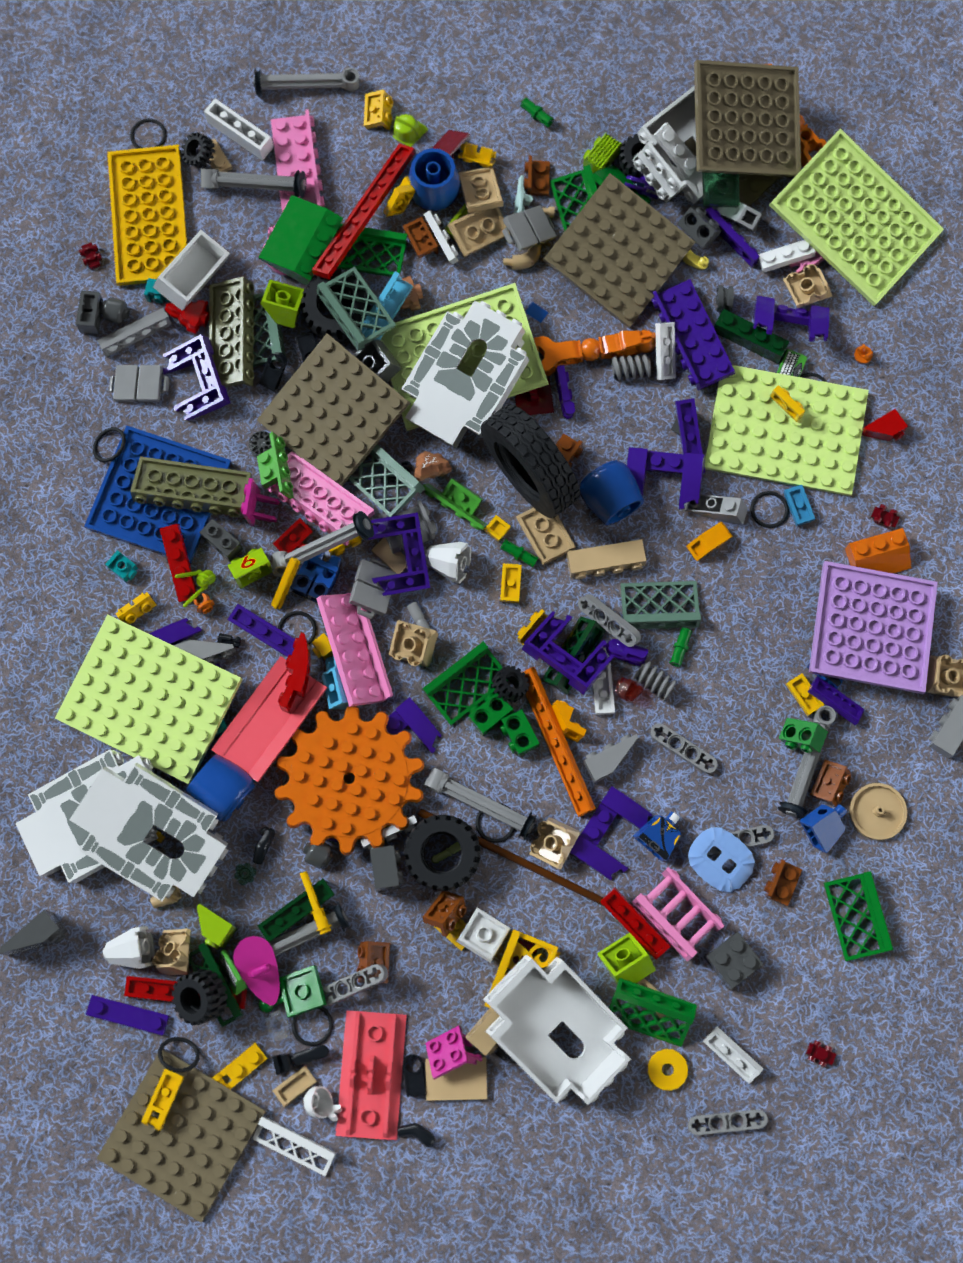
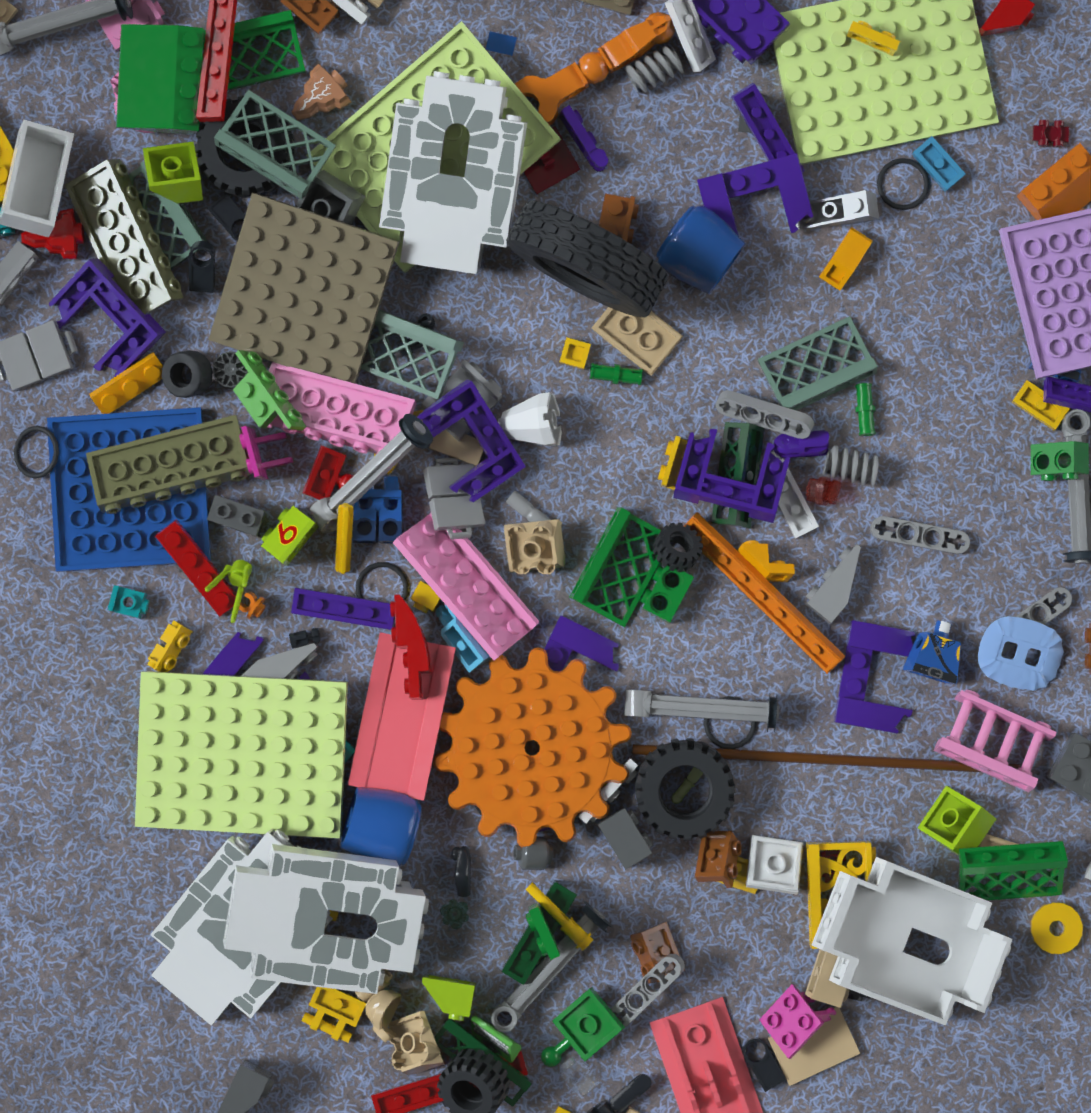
camera: 25 degrees left, 10 degrees up
(131, 949) = (362, 1063): white cone -> none
(133, 900) = (338, 1005): none -> yellow plate
(161, 919) = (380, 1011): none -> tan piece
(190, 426) = (128, 384): none -> light orange plate
(225, 428) = (200, 369): none -> black tyre
(258, 968) = (525, 1020): dark pink shield -> none
(293, 1024) = (630, 1075): black piece -> none
(296, 912) = (546, 940): none -> green plate
(391, 299) = (312, 114): medium azure fence -> none
(431, 466) = (458, 309): nougat rock -> none
(460, 500) = (512, 337): bright green bracket -> none
(510, 583) = (621, 417): yellow plate -> none
(524, 731) = (717, 597): green brick -> none
(554, 842) = (812, 718): tan slope -> none
(606, 558) = (728, 335): tan brick -> none
(635, 923) = (949, 773): red plate -> none

